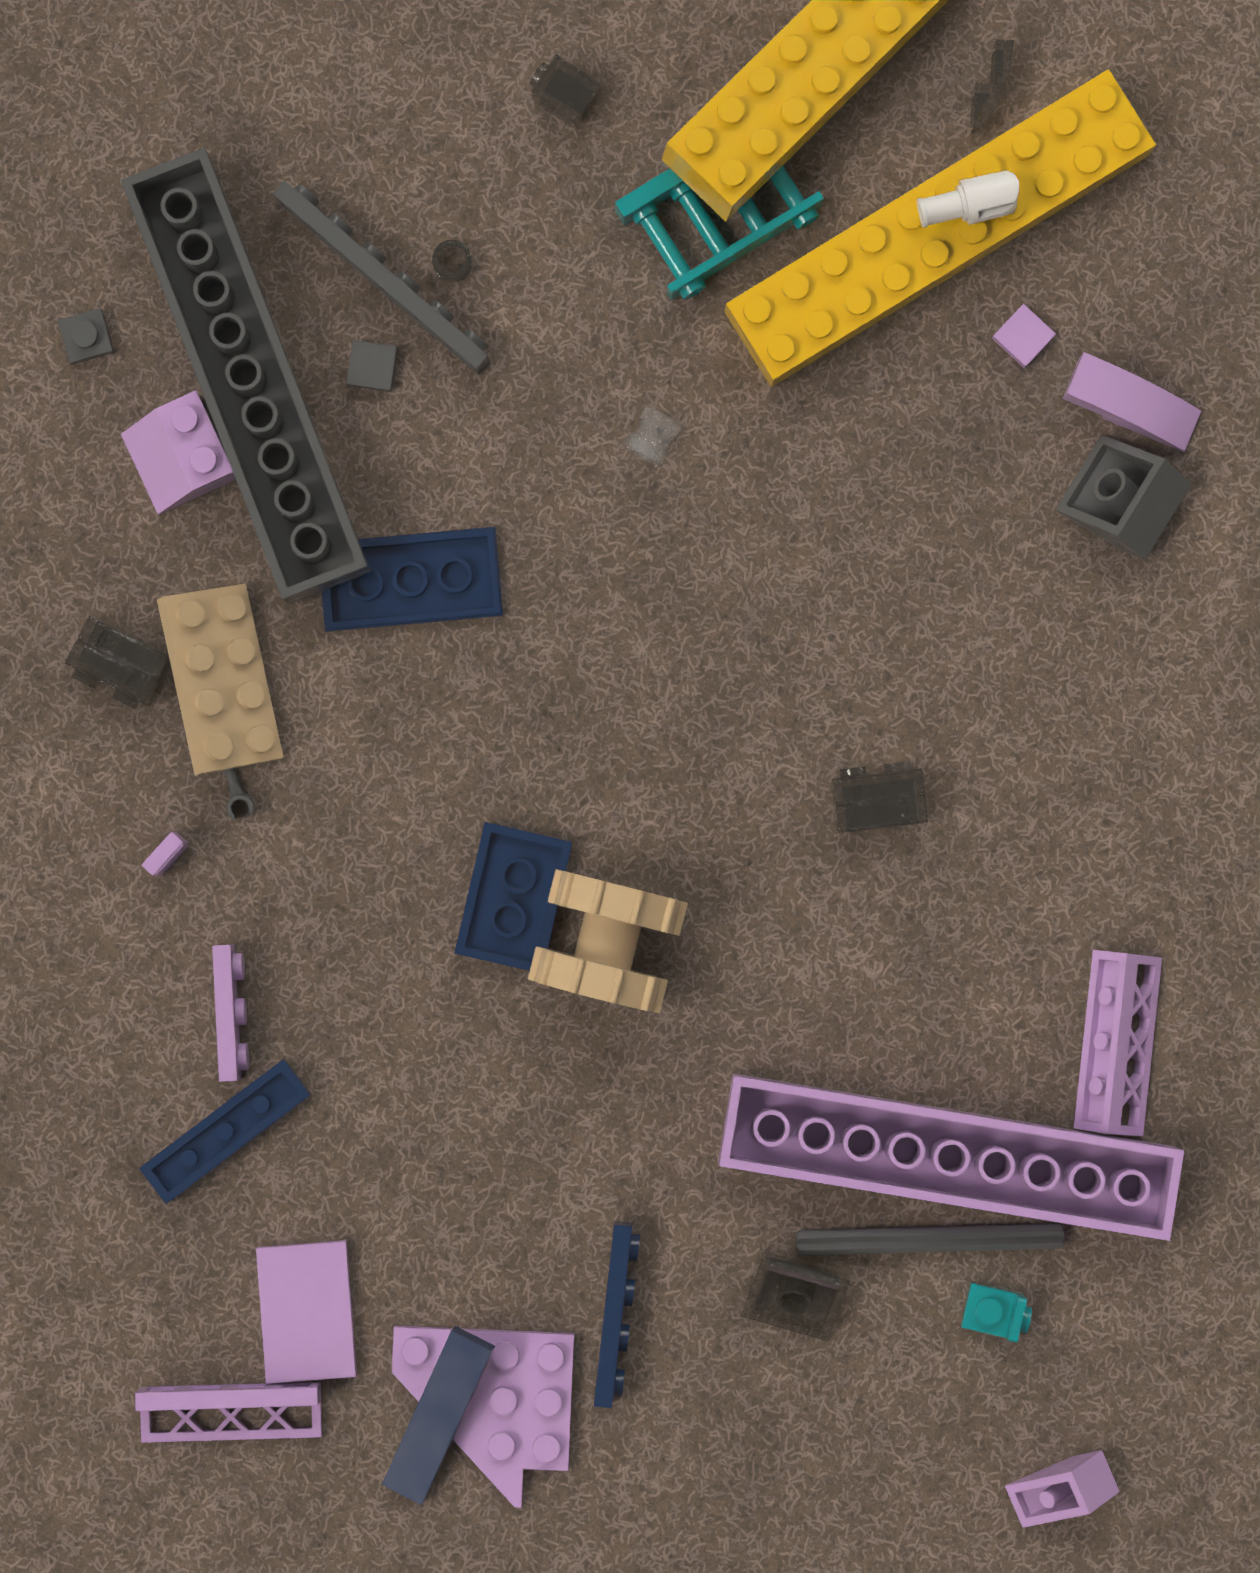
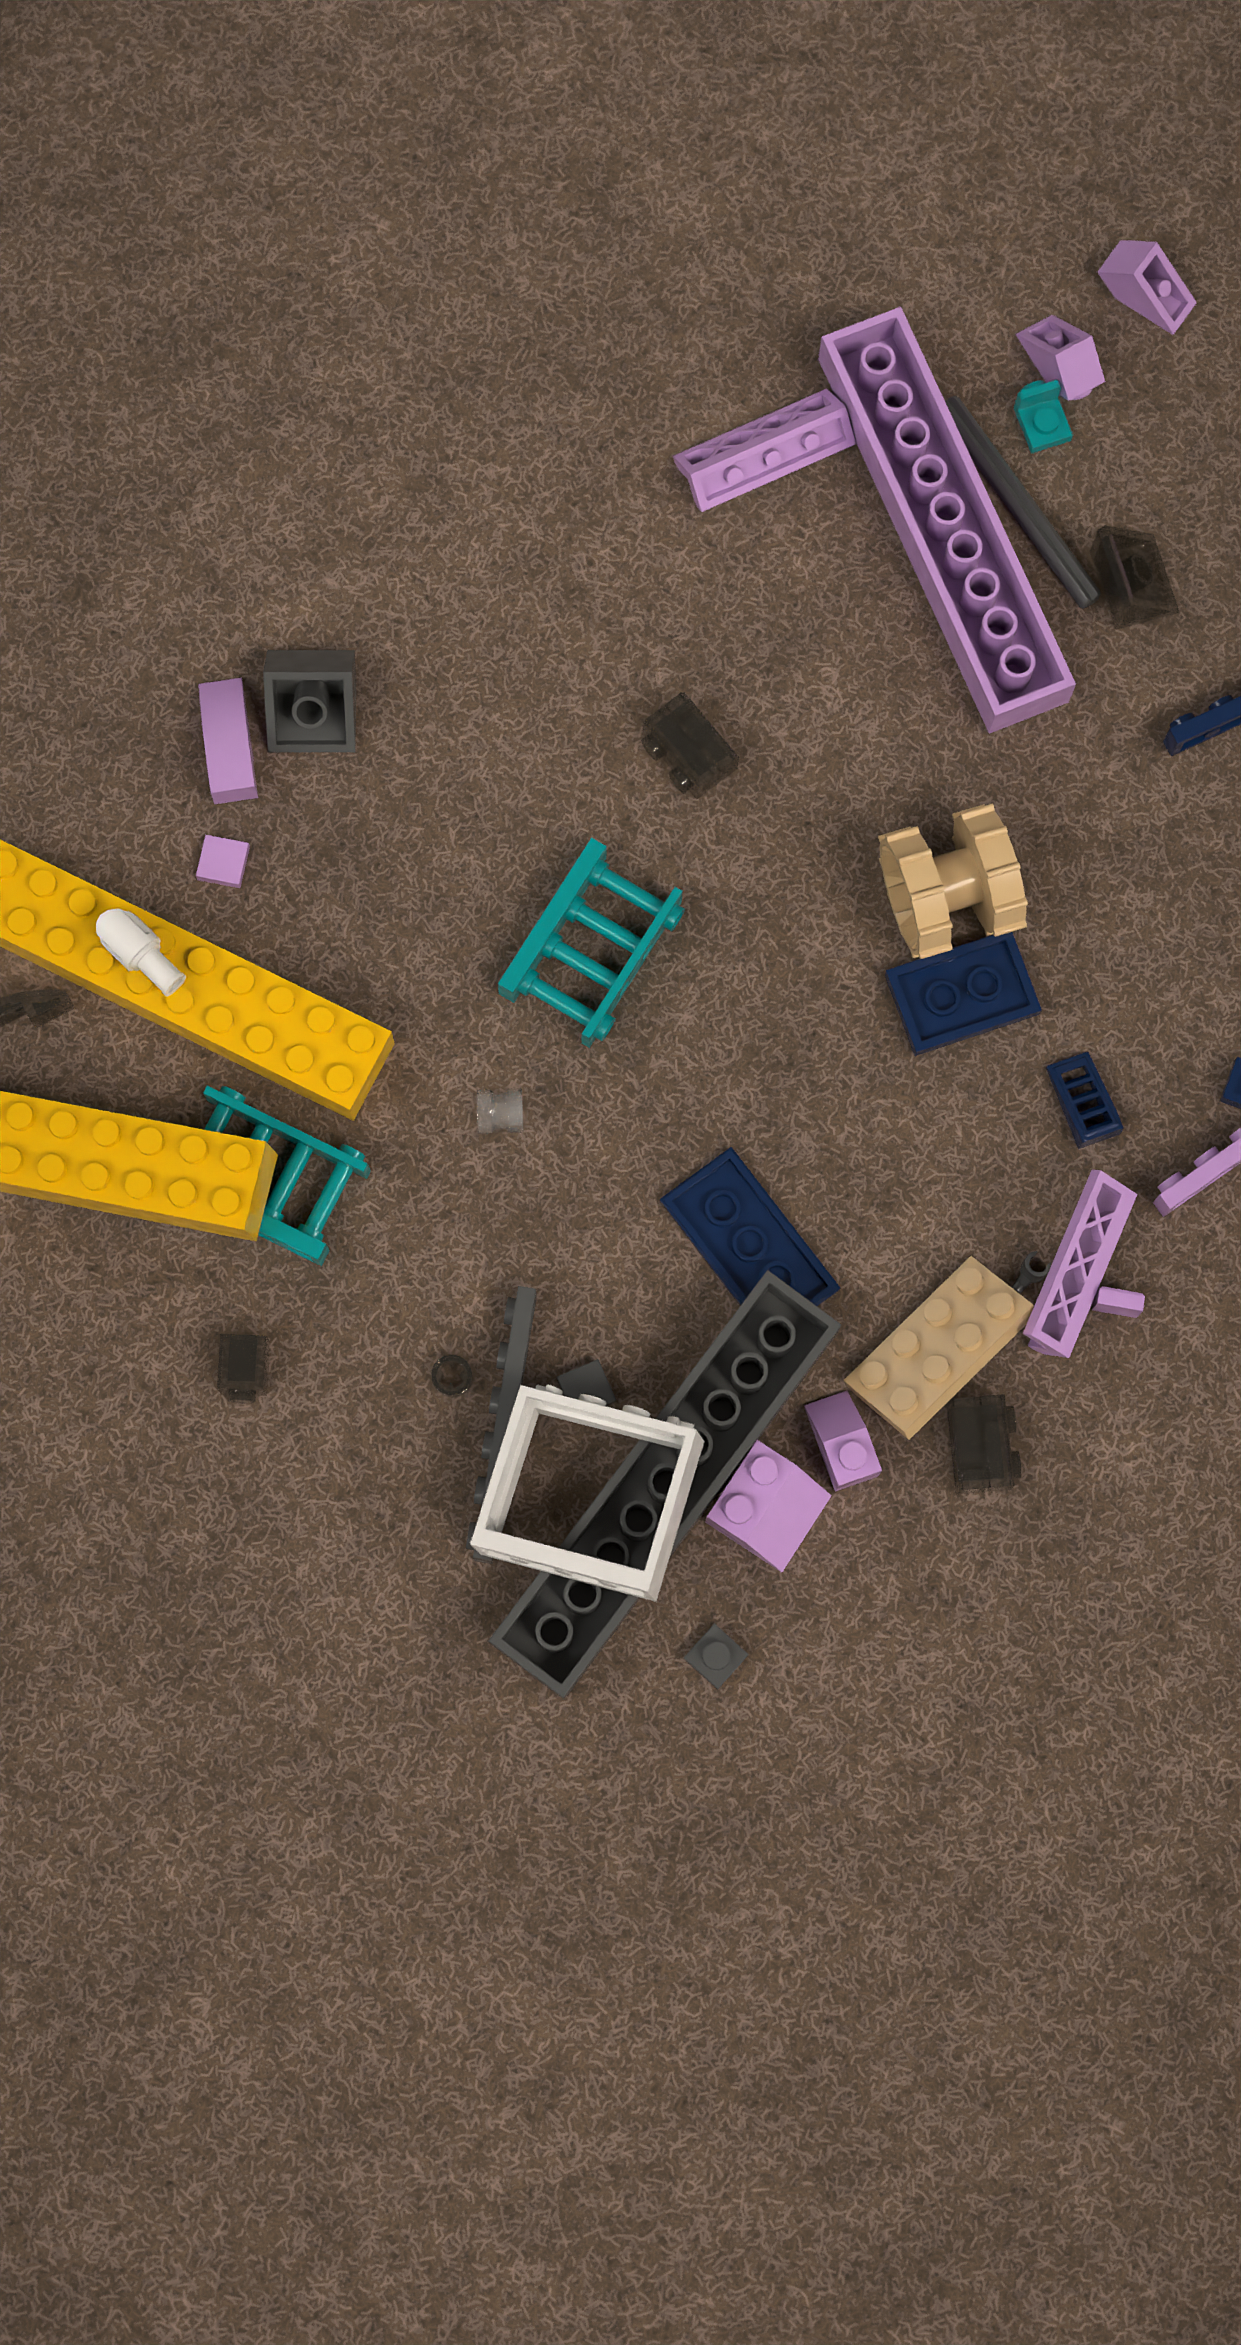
camera: 125 degrees left, 10 degrees down
(194, 549) = (843, 1440): none -> lavender slope
(213, 838) = (1079, 1265): none -> lavender fence
(287, 196) = (590, 1412): none -> white window
(319, 936) = (1085, 1136): none -> dark blue slope
(775, 568) = (570, 906): none -> teal fence
(1041, 1366) = (1063, 355): none -> lavender slope

